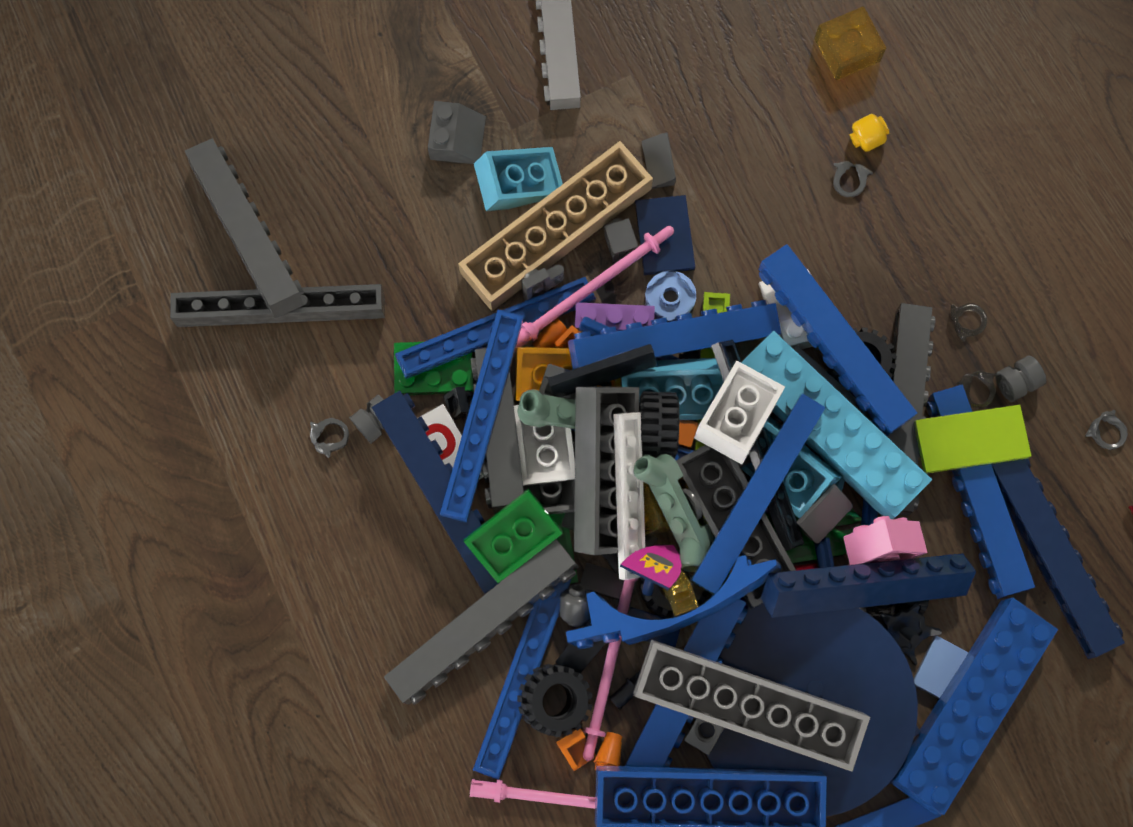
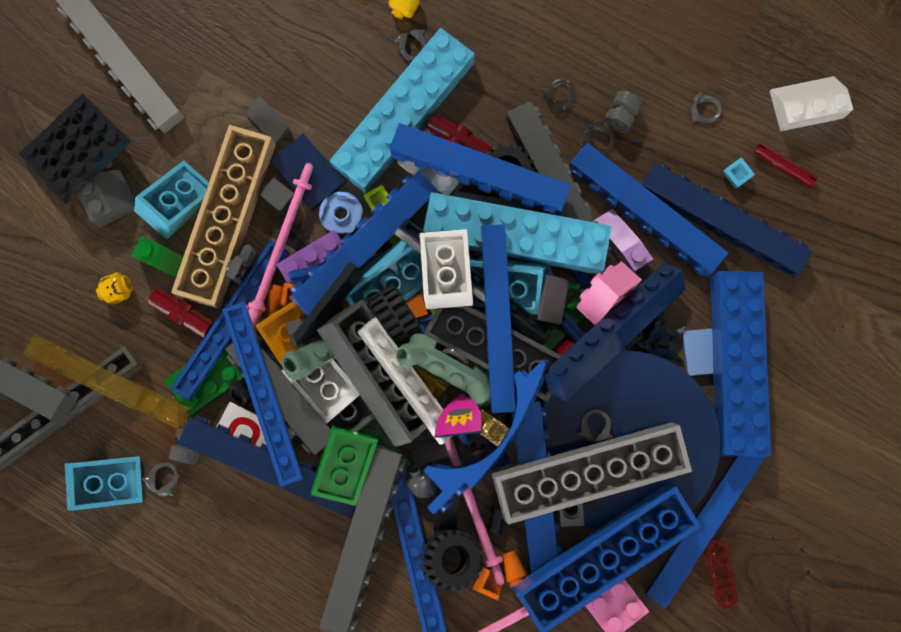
camera: 30 degrees left, 5 degrees up
(272, 401) = (103, 483): none -> medium azure slope
(341, 308) = (106, 382): none -> clear yellow slope
(406, 225) = (114, 288): none -> yellow head
(448, 79) = (71, 159): none -> black piece
(453, 288) = (180, 312): none -> dark red piece
(467, 222) = (157, 256): none -> green slope
(771, 663) = (585, 431): none -> dark grey piece
(810, 230) = (408, 102): none -> medium azure brick
(837, 292) = (456, 133): none -> dark red piece
(936, 511) = (625, 243): none -> lavender slope
(972, 439) = (619, 177): lime tile -> none
(1099, 516) = (738, 173): none -> medium azure plate

